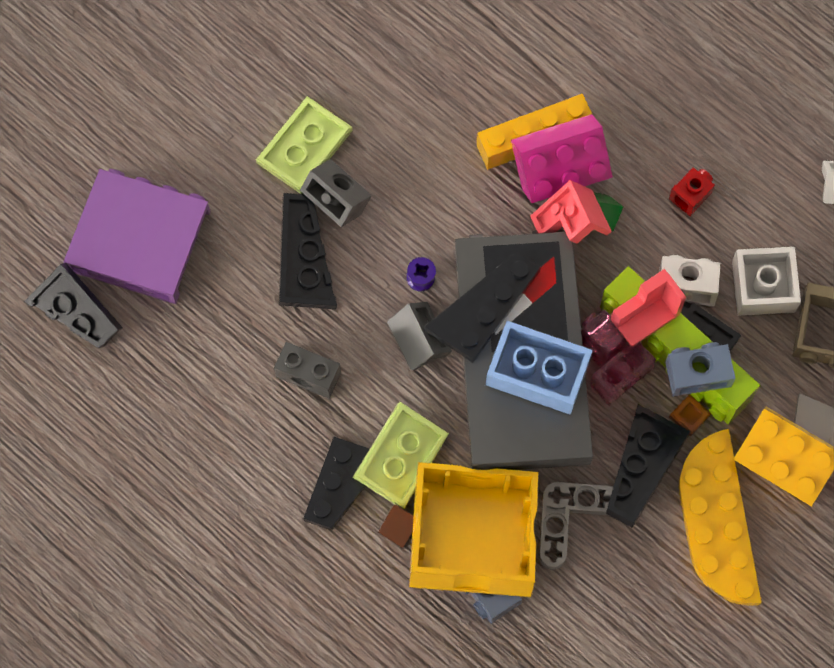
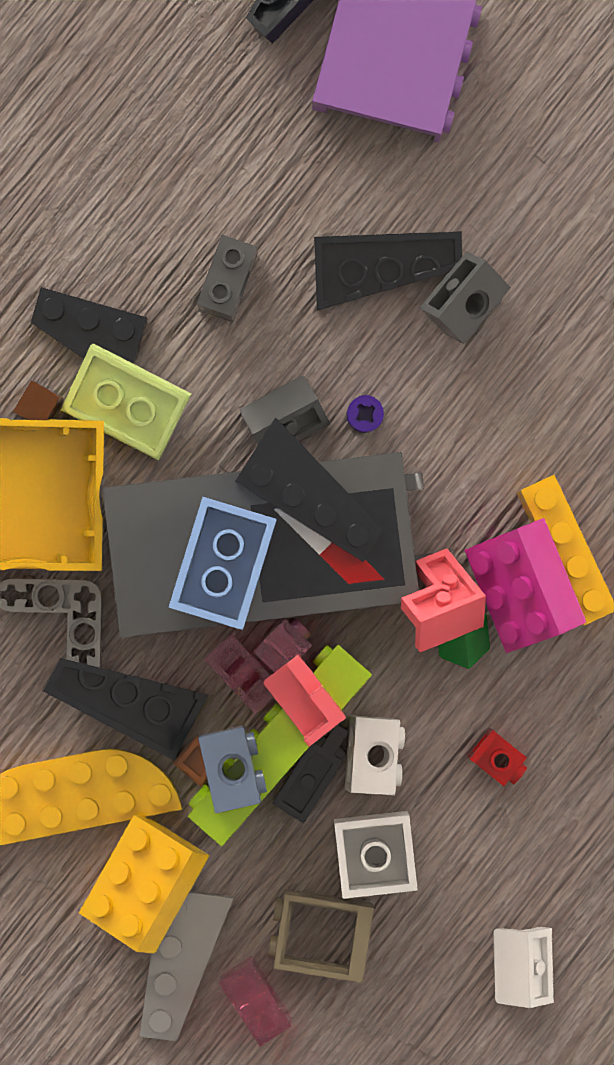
camera: 90 degrees right, 15 degrees up
(303, 143) = (536, 254): yellowish green tile -> none

